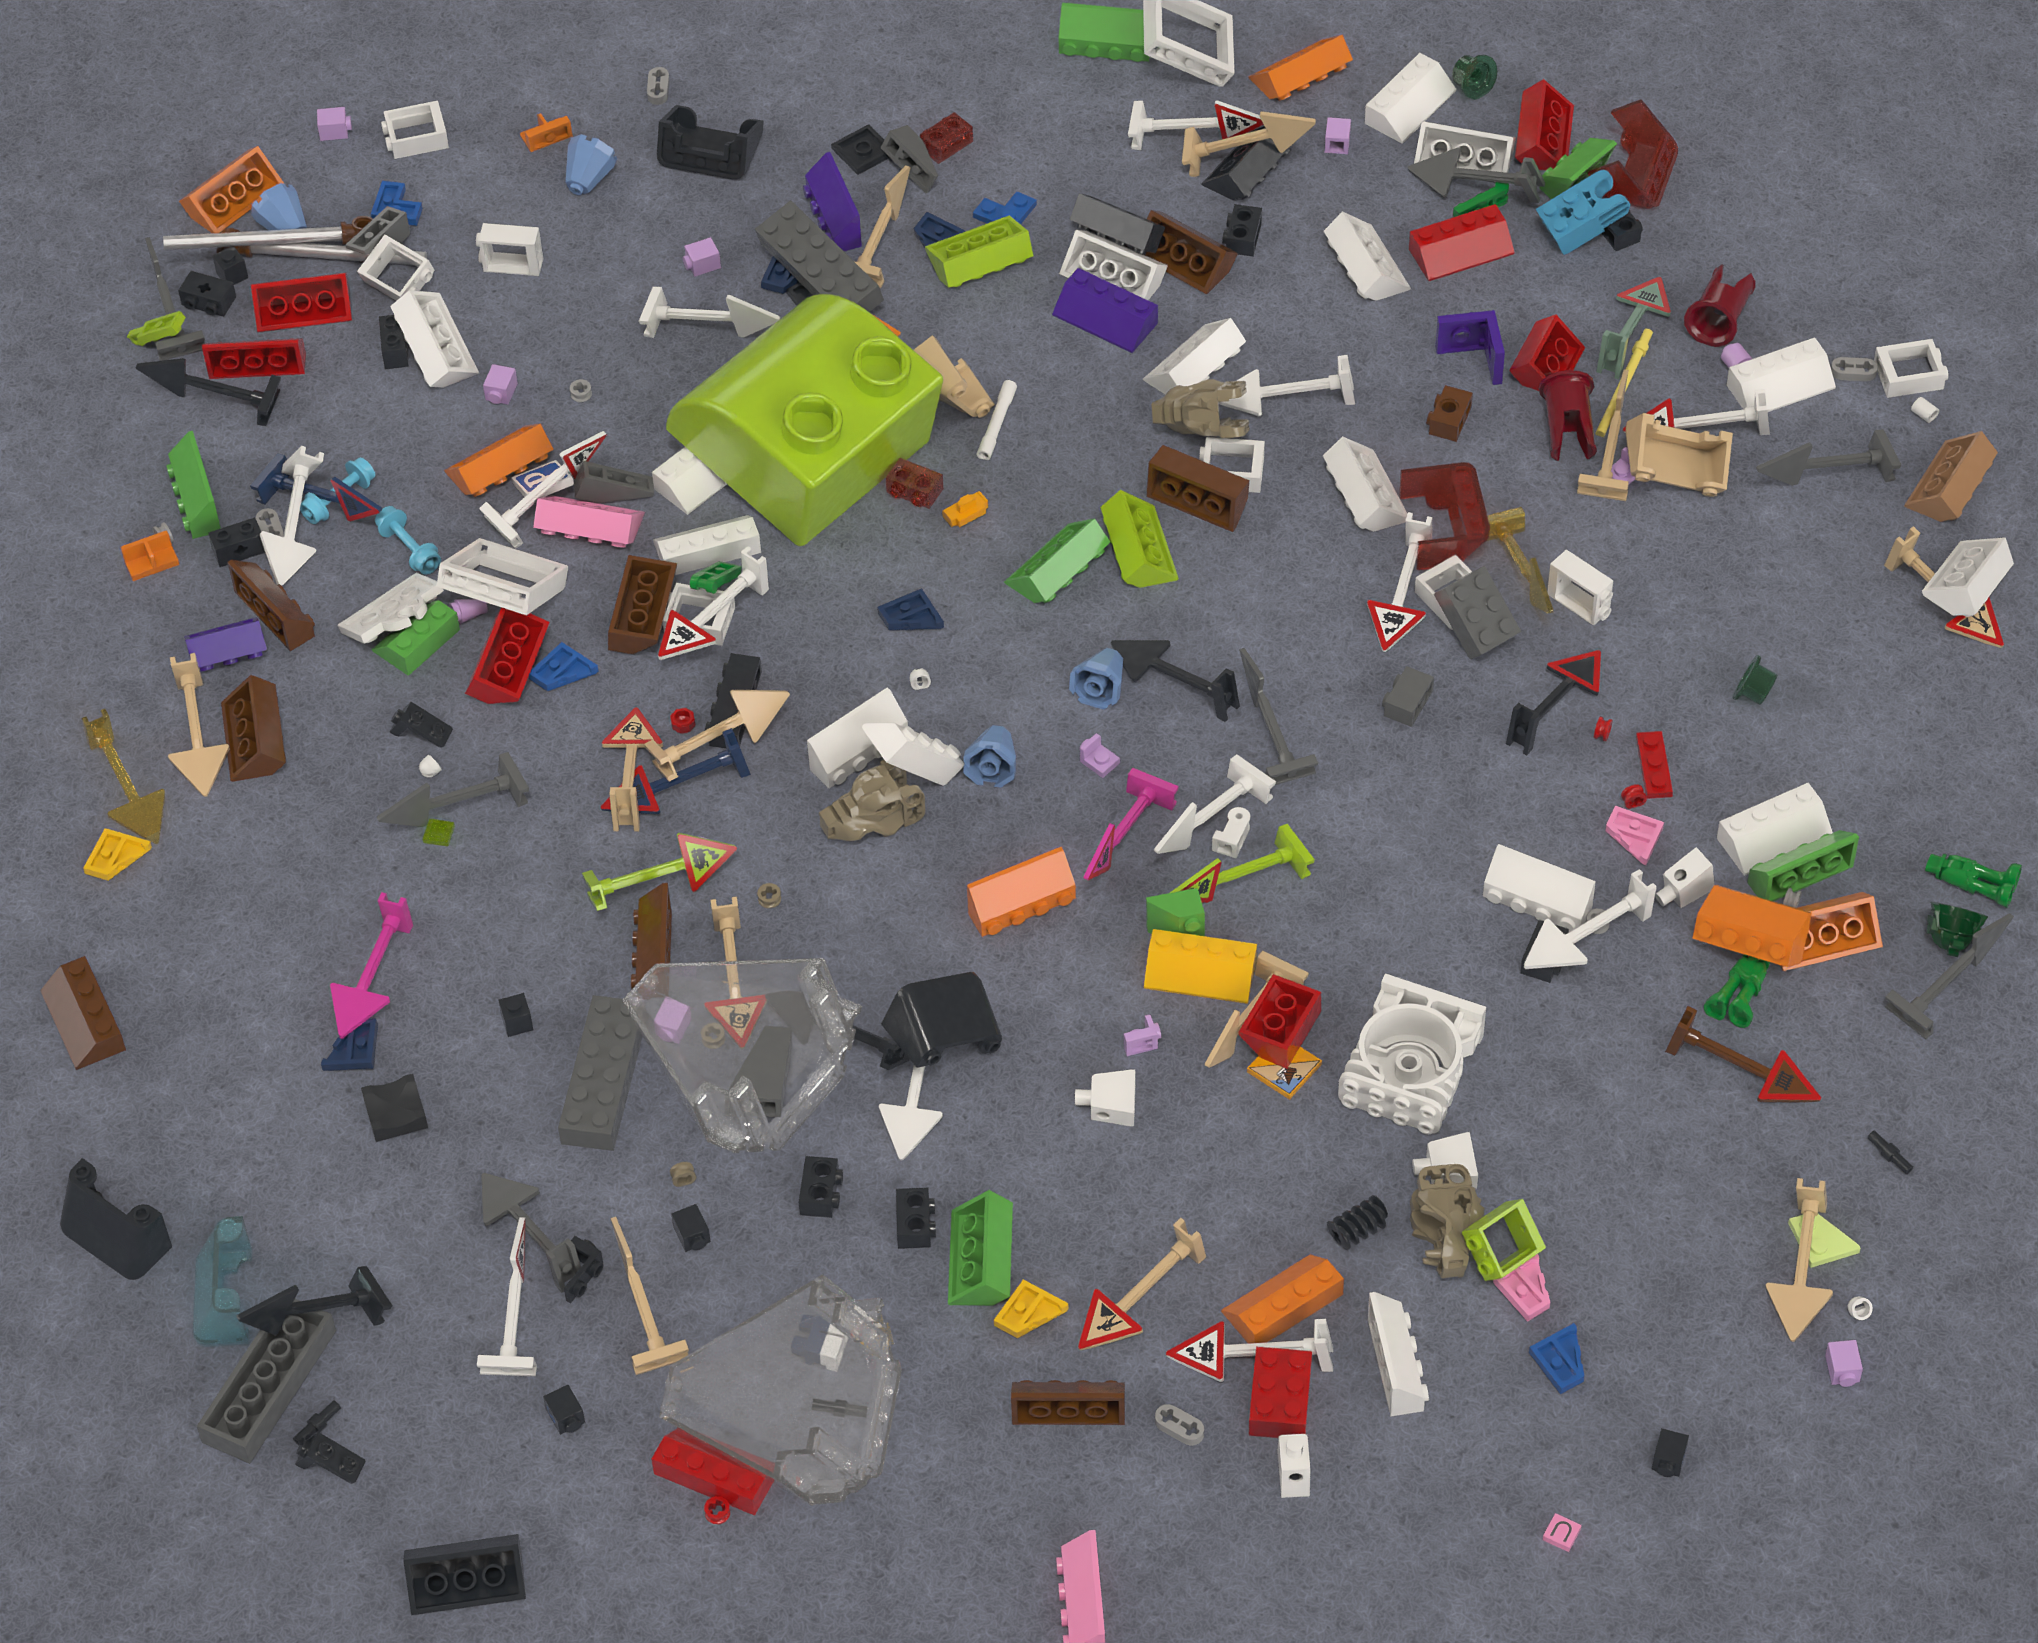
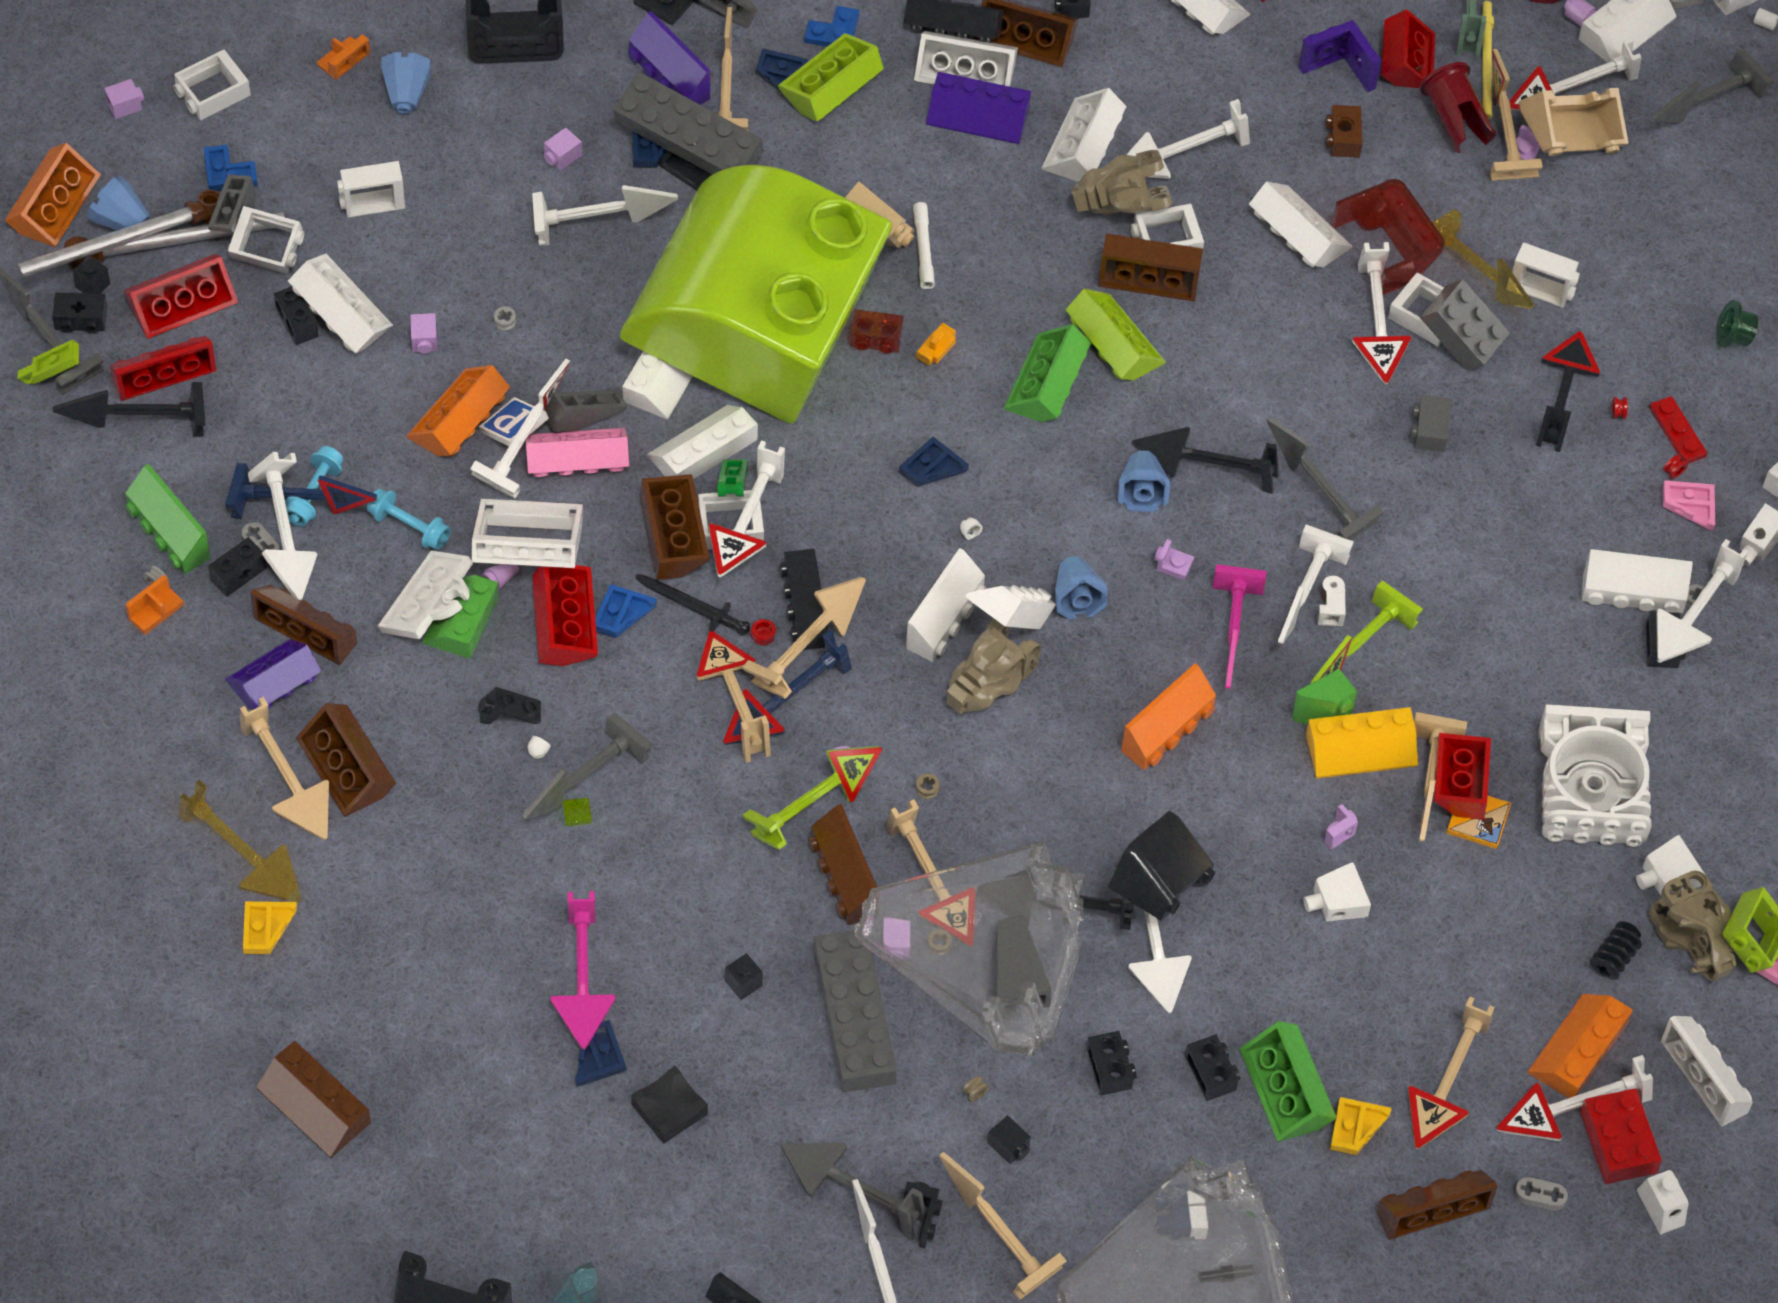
camera: 25 degrees left, 5 degrees up
(646, 694) = (716, 615): none -> black sword

